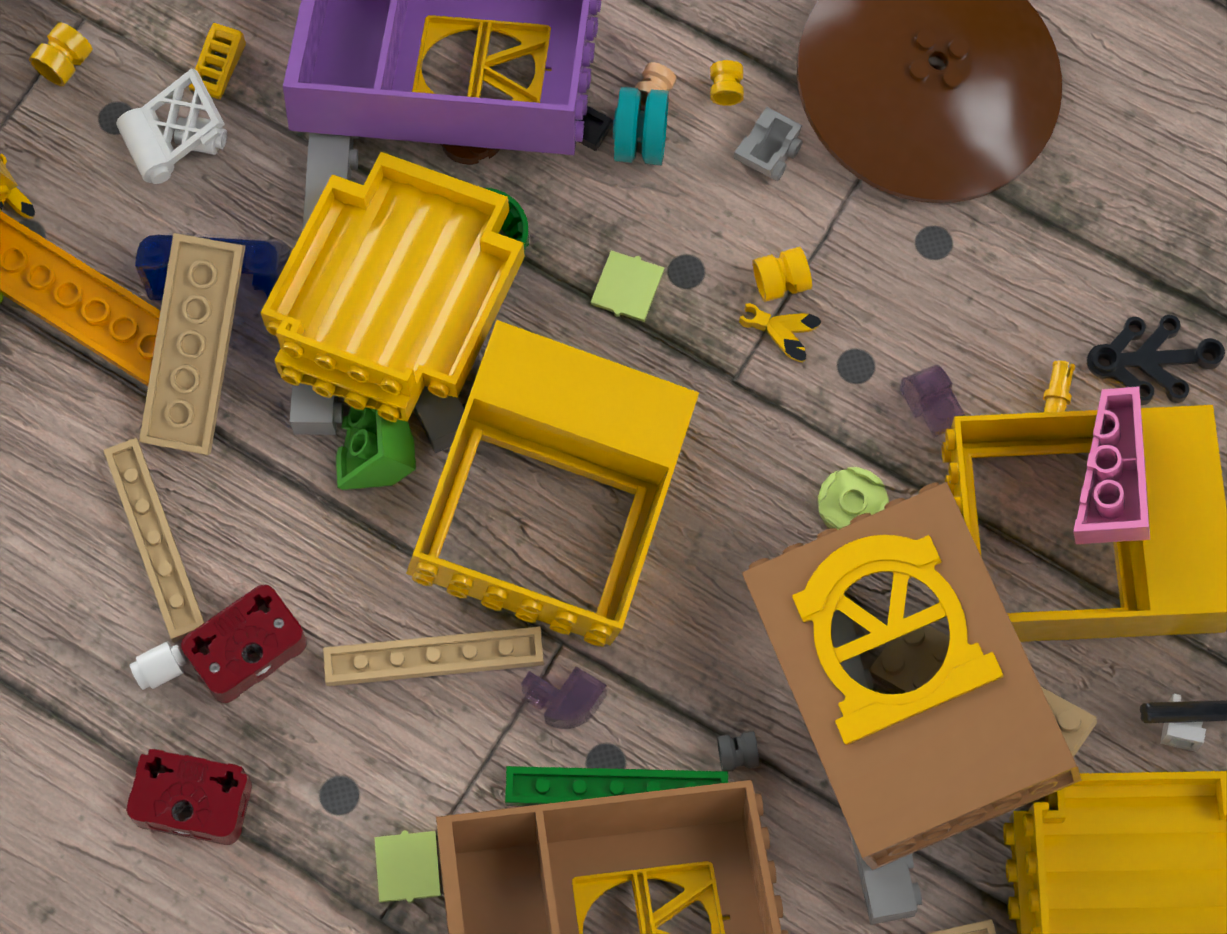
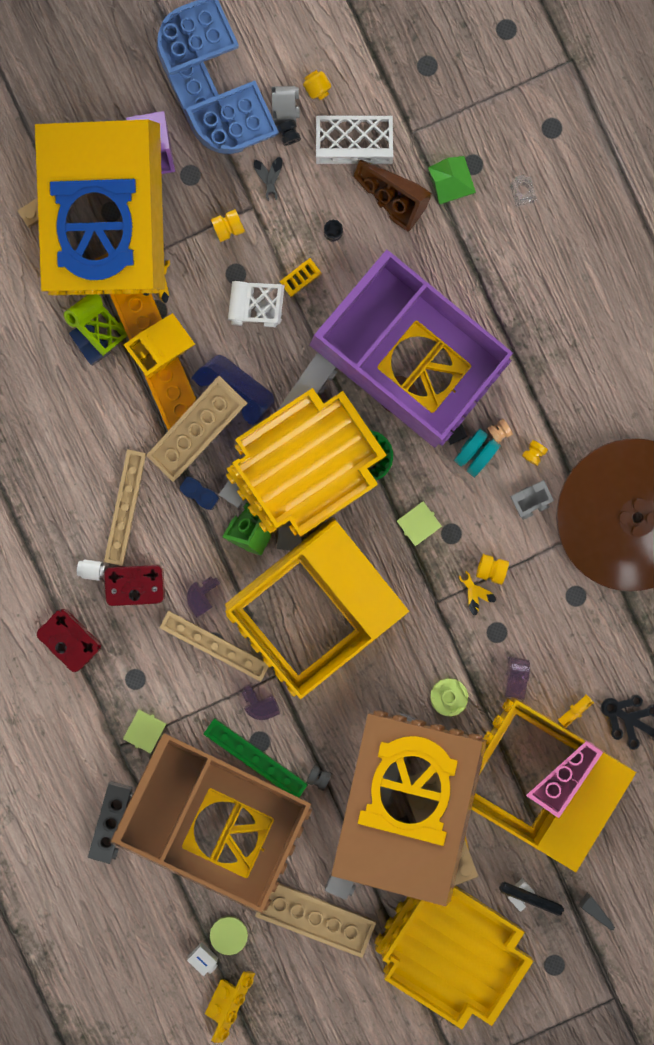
camera: 30 degrees right, 20 degrees up
(57, 269) = (159, 345): none -> yellow slope
(266, 443) = (195, 490): none -> dark blue brick
(357, 598) = (197, 597): none -> clear purple brick

